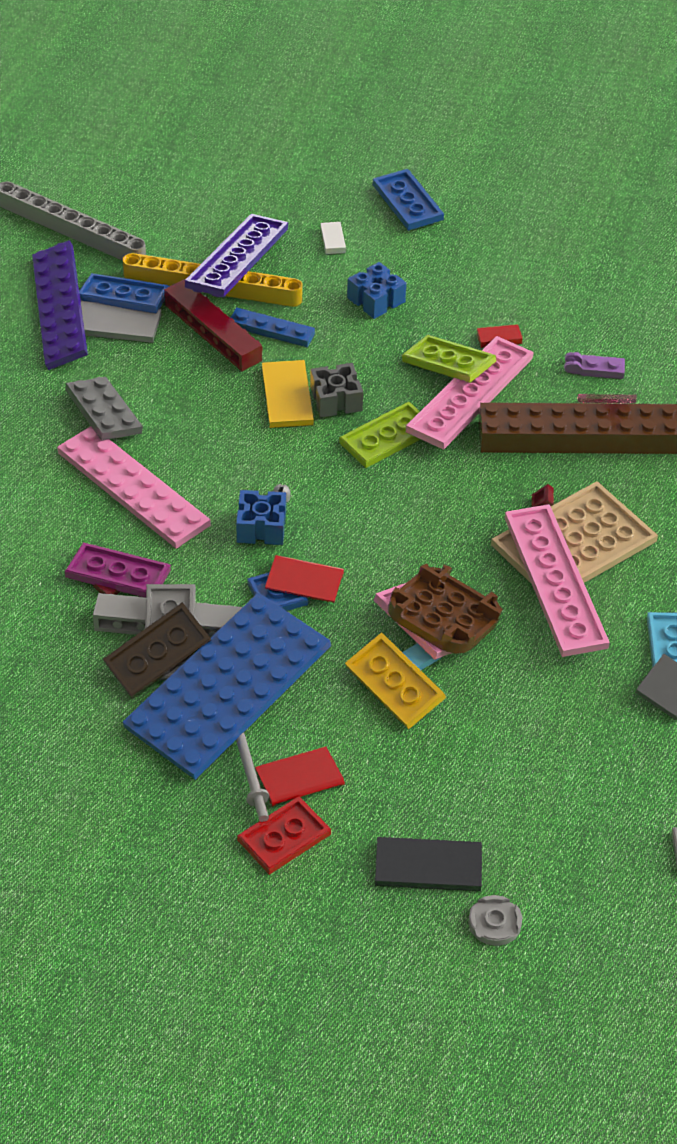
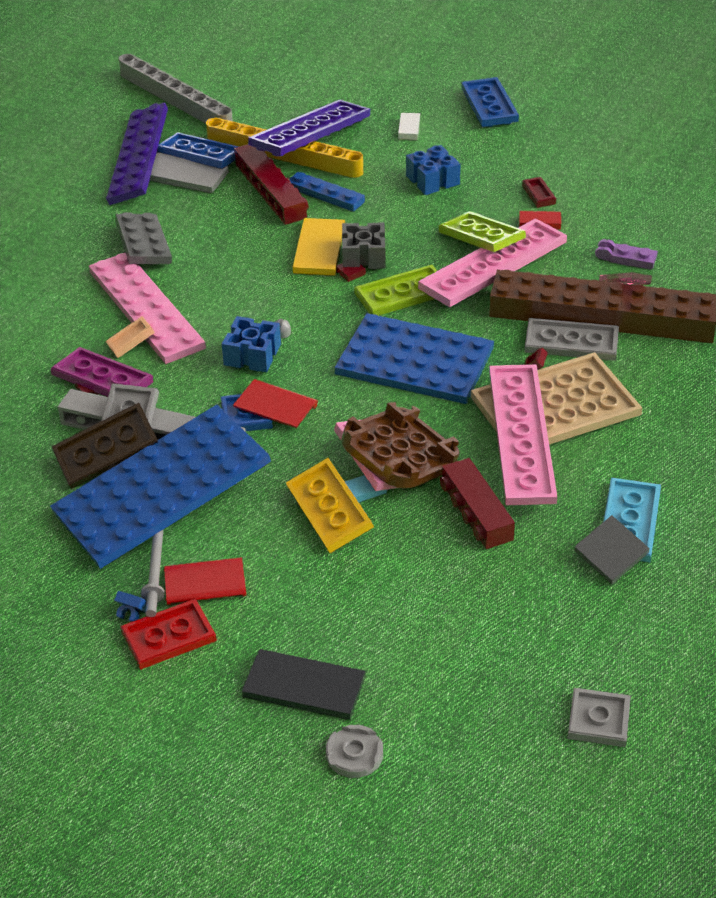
camera: 15 degrees right, 5 degrees down
(132, 524) = (130, 337): none -> light nougat tile
(240, 810) = (129, 603): none -> blue tile
(329, 420) = (350, 273): none -> dark red tile
(423, 509) = (415, 358): none -> blue plate
(488, 302) = (539, 192): none -> dark red tile
(533, 657) = (477, 503): none -> dark red brick
(568, 467) = (572, 338): none -> light grey tile

